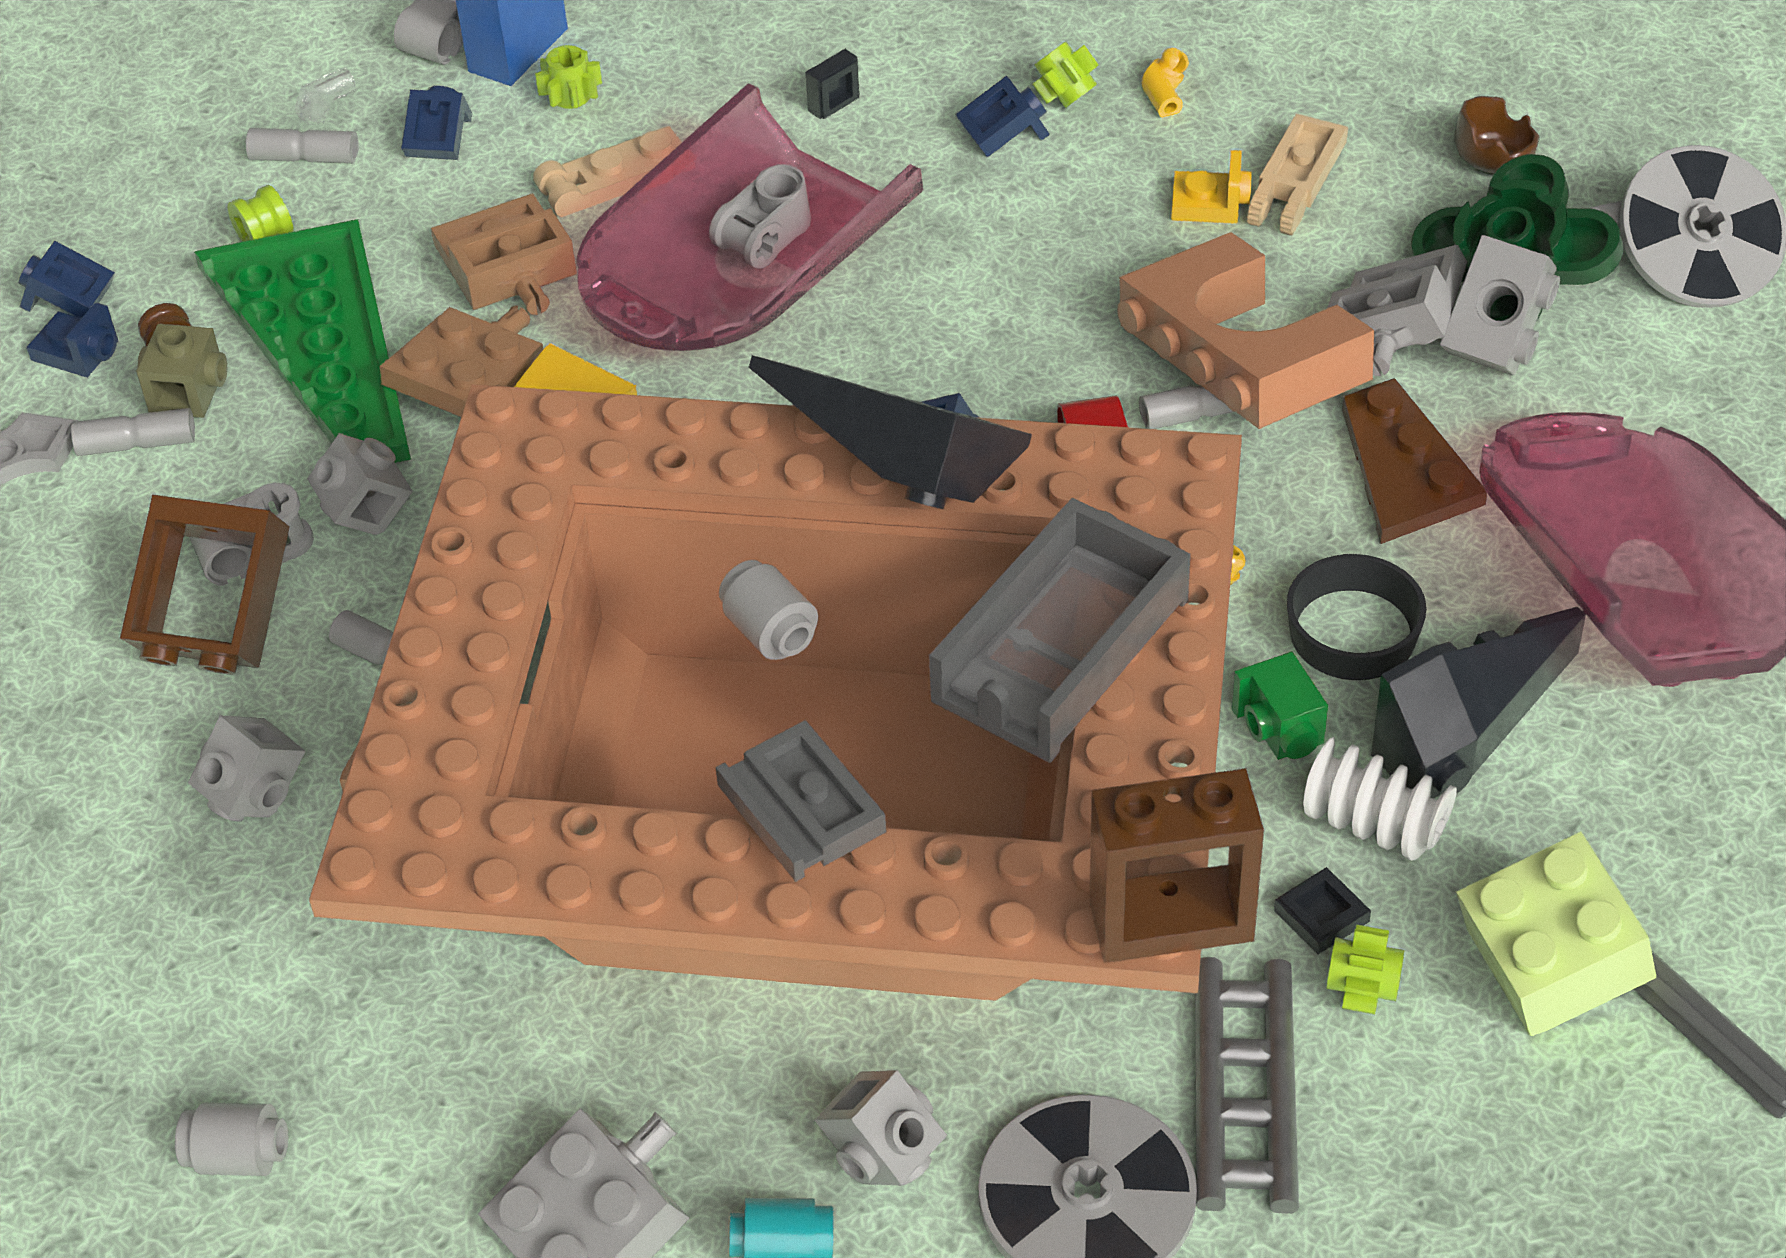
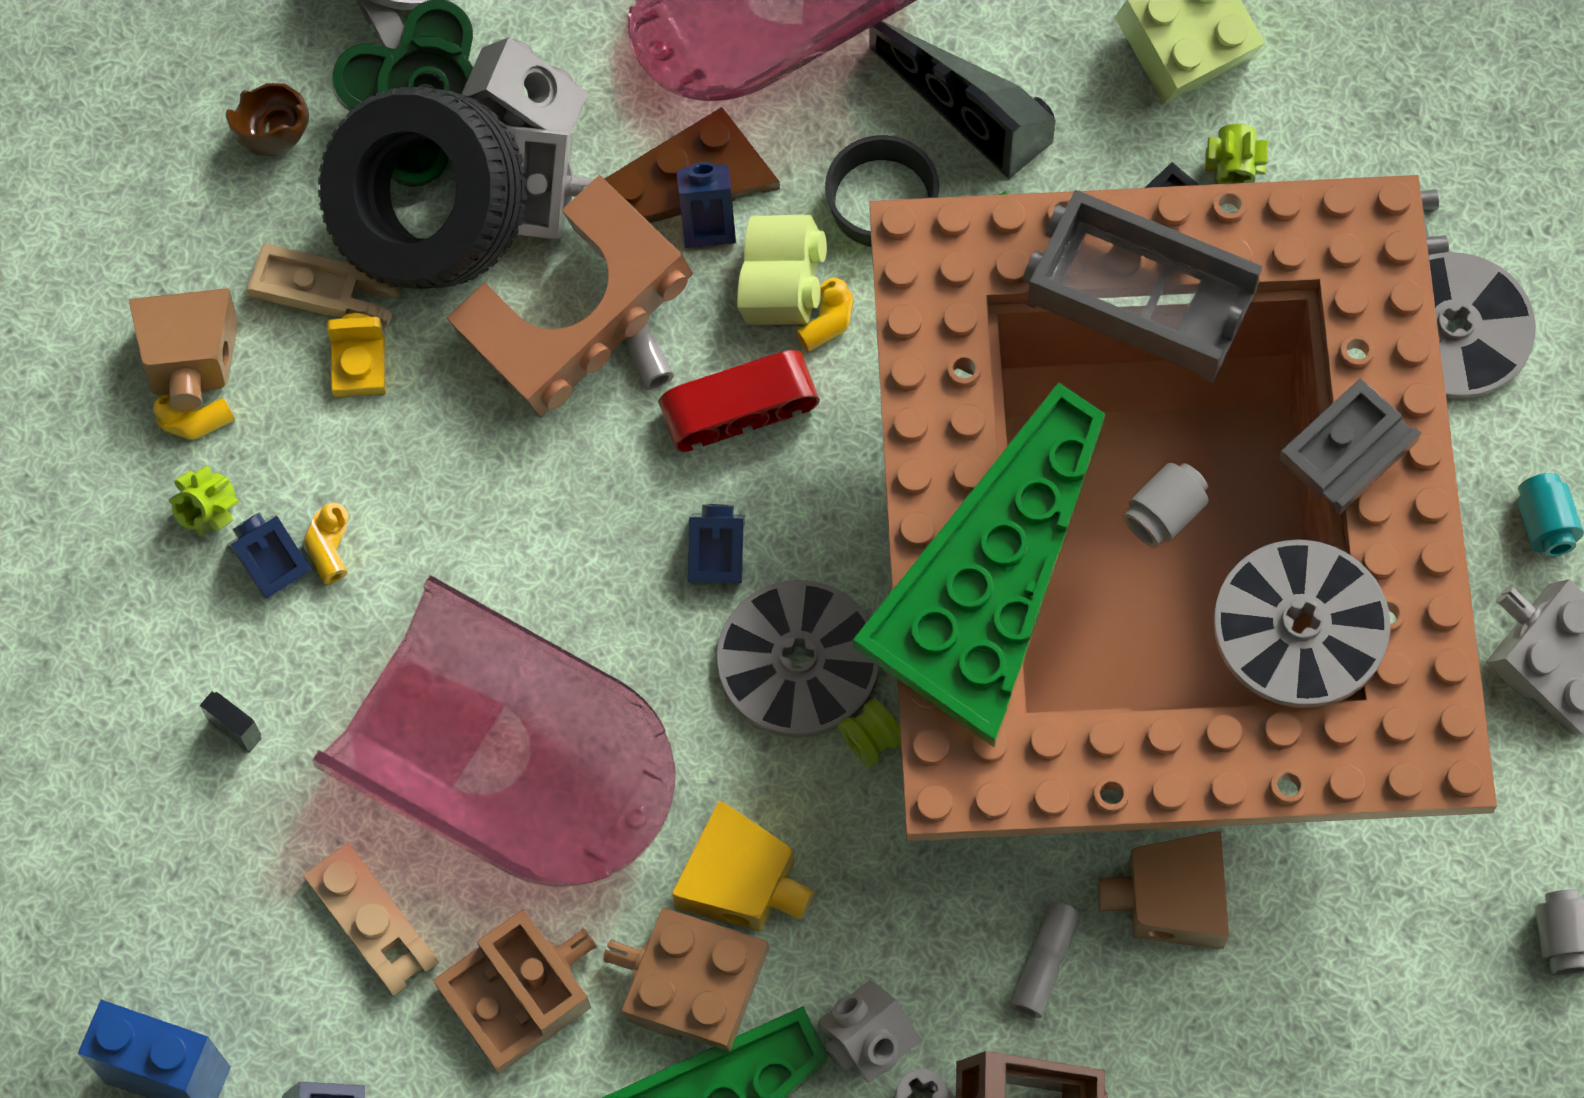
camera: 100 degrees left, 20 degrees up
(245, 767) = (1231, 1027): light grey brick -> none
(568, 77) = (253, 992): lime gear -> none
(587, 769) = (1311, 666): none -> light grey piece
(723, 443) = (976, 591): none -> green wing
(767, 216) = (470, 743): light grey piece -> none
(881, 1129) = (1472, 451): light grey brick -> none
(902, 438) = (956, 424): black wedge -> none
(1010, 160) = (323, 540): none -> yellow arm
(1181, 907) = (1398, 148): reddish brown window -> none
(1236, 67) = (186, 343): none -> medium nougat torso
(1278, 511) = (780, 270): none -> yellowish green brick
(1349, 451) = (706, 205): none -> dark blue bracket
(1374, 200) = (359, 175): none -> black tyre
(1376, 802) = (1080, 147): white piece -> none

